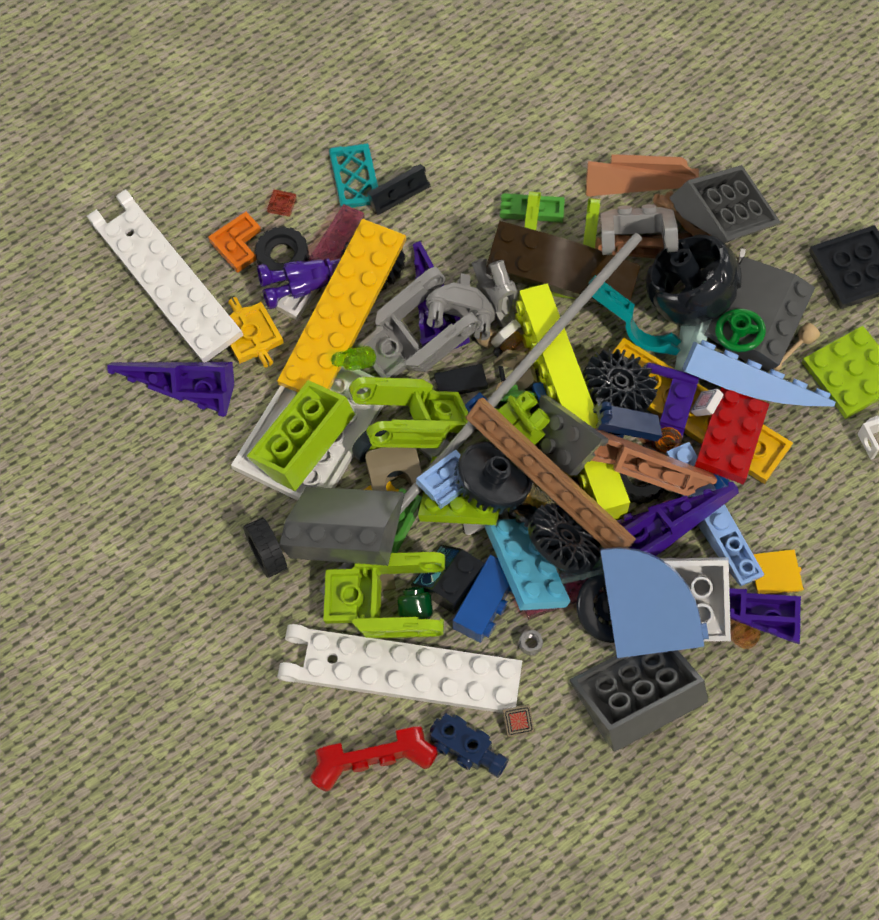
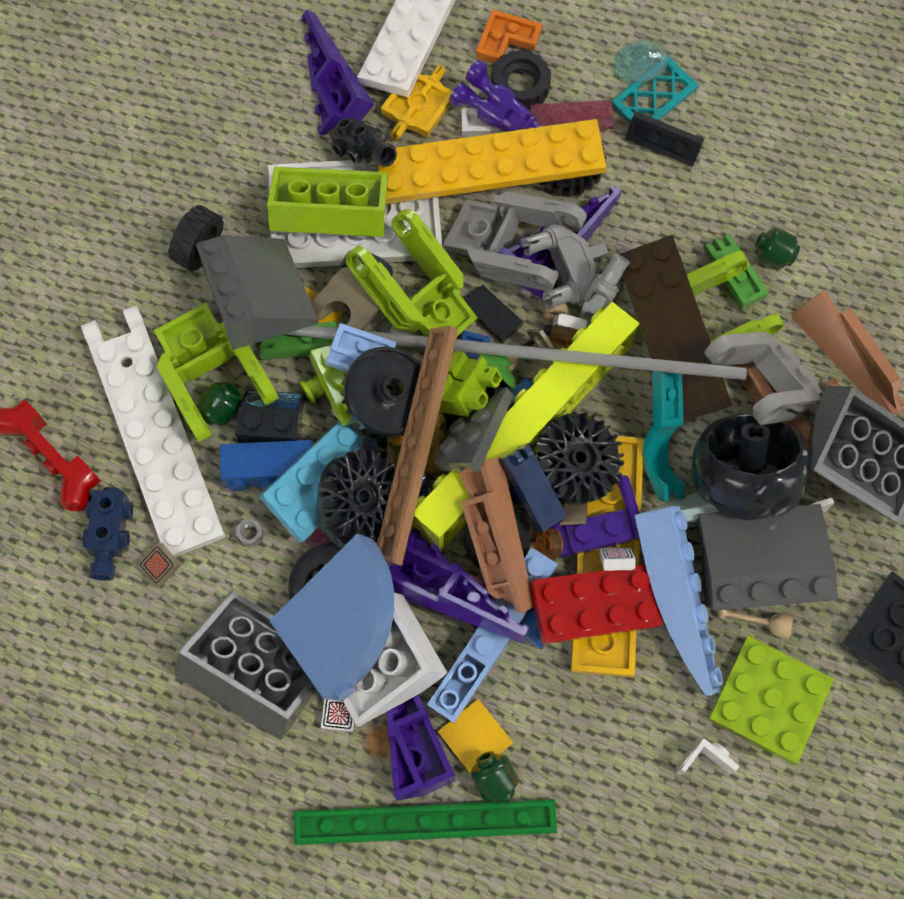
camera: 55 degrees right, 5 degrees up
(264, 386) = (361, 143): none -> black brick
(281, 203) = (577, 50): clear red tile -> none
(325, 174) = (640, 61): none -> clear light blue dish
(355, 358) = (442, 201): clear neon green hinge -> none
(443, 534) = (312, 388): none -> lime bush
(533, 171) = (777, 248): none -> dark green head
(658, 409) = (575, 514): none -> dark tan piece
(709, 655) = (336, 717): none -> tile
(740, 318) = (729, 533): green piece -> none
(815, 572) = (494, 777): none -> dark green head
(818, 641) = (424, 822): none -> green tile

